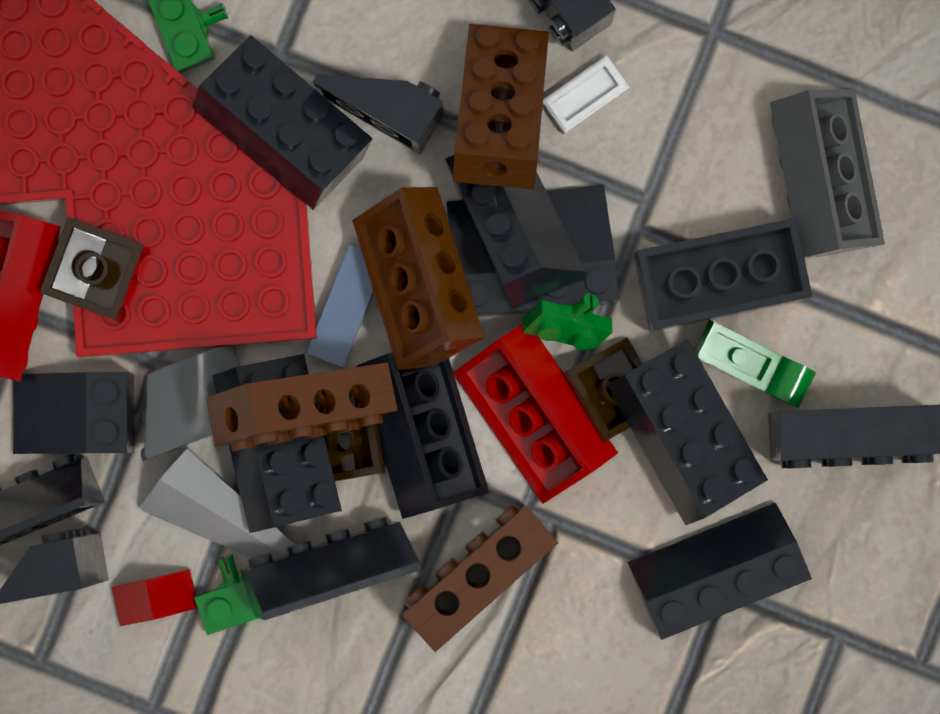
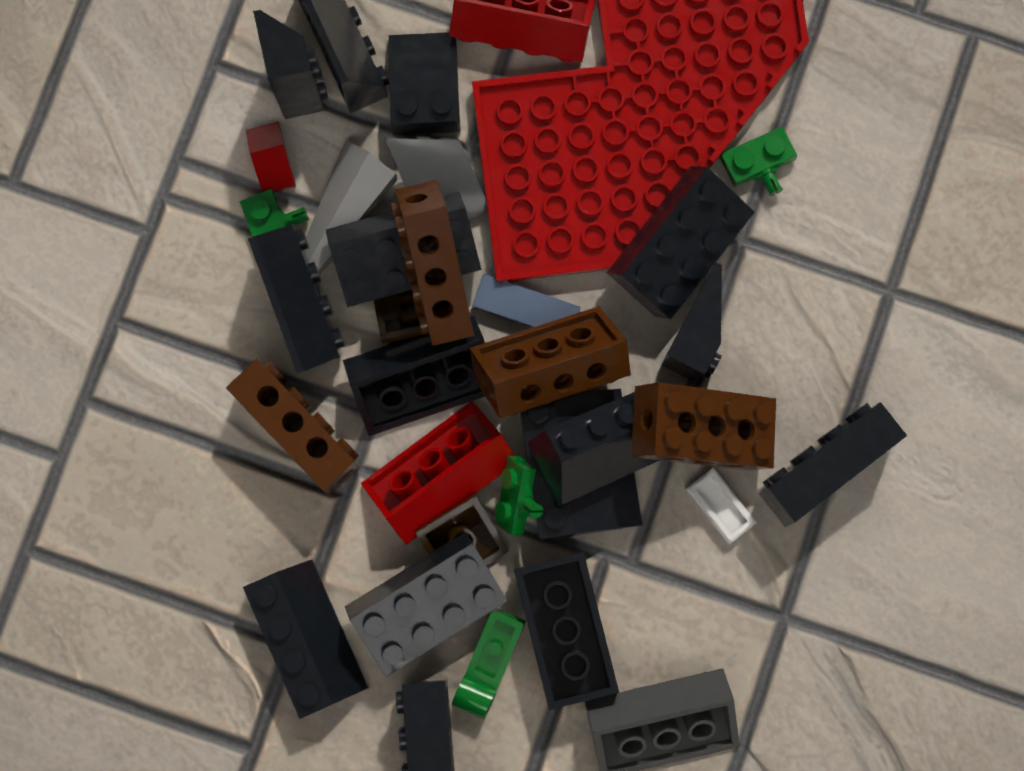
camera: 85 degrees right, 5 degrees down
(92, 268) = (546, 88): dark brown slope -> none

